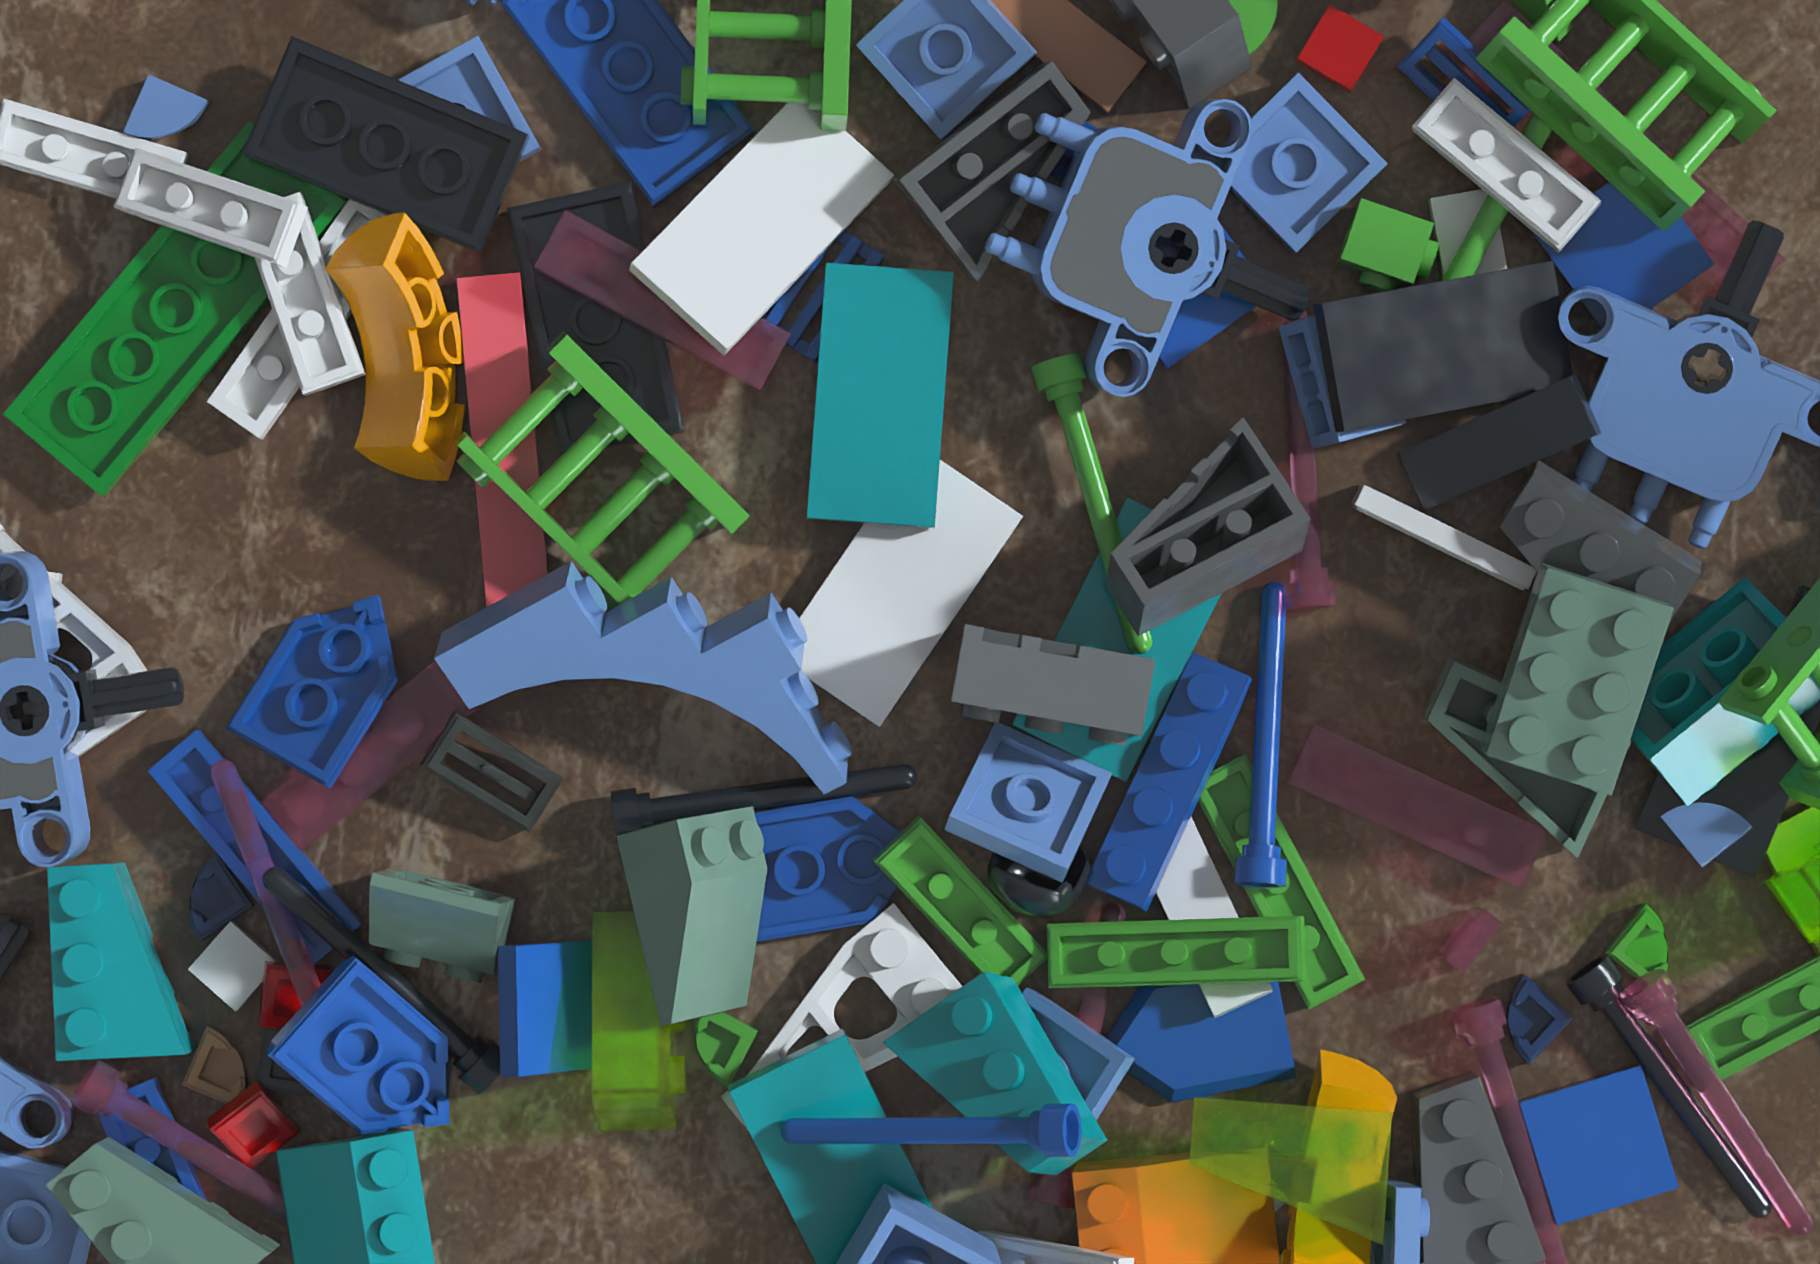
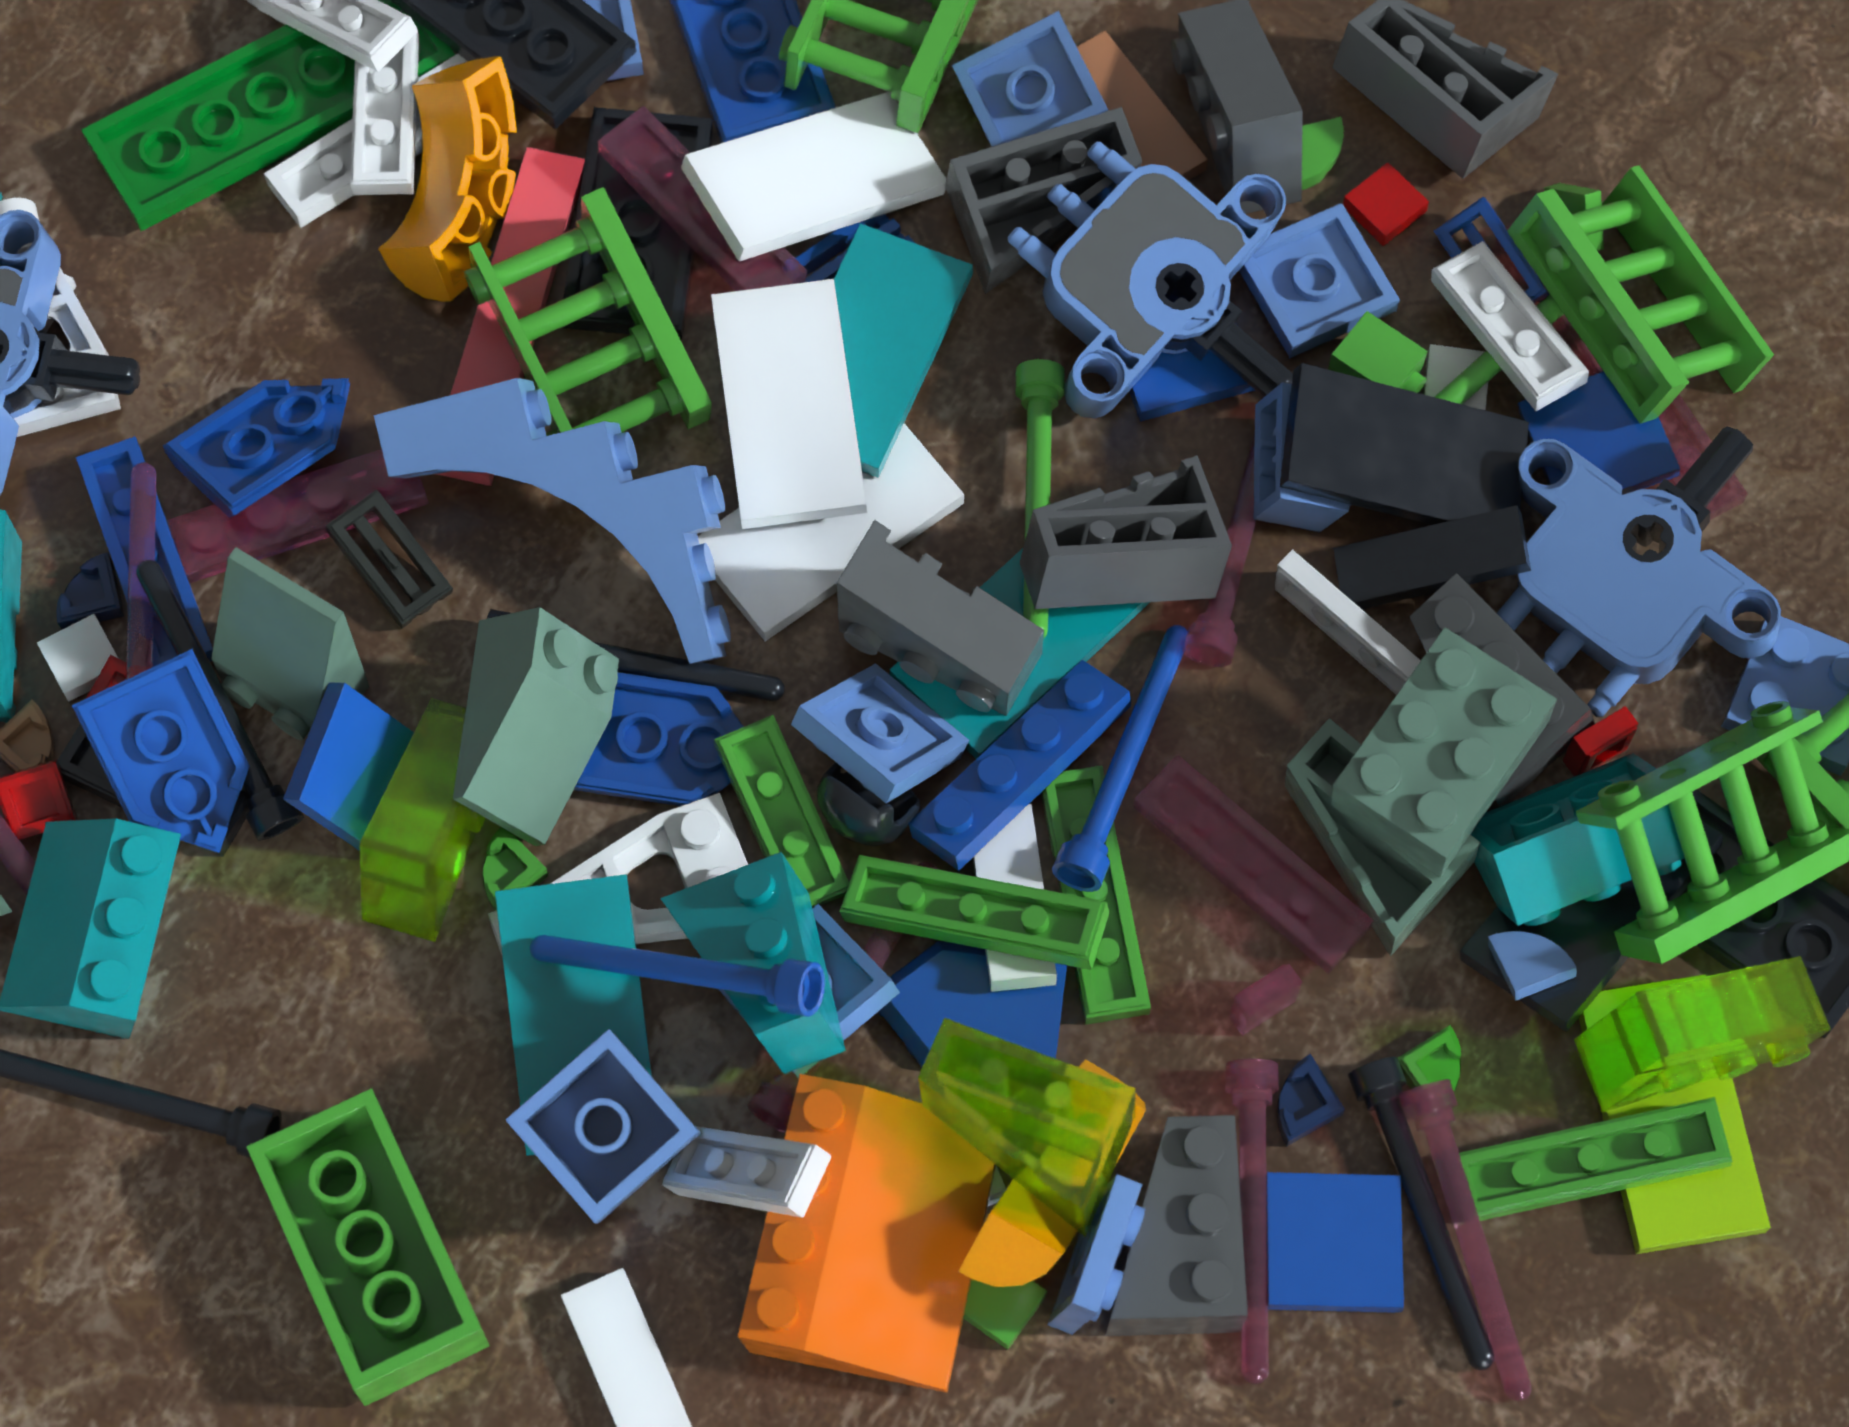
camera: 15 degrees right, 20 degrees down
(824, 491) = (788, 404): none -> white tile
(1715, 574) = (1601, 742): none -> red tile

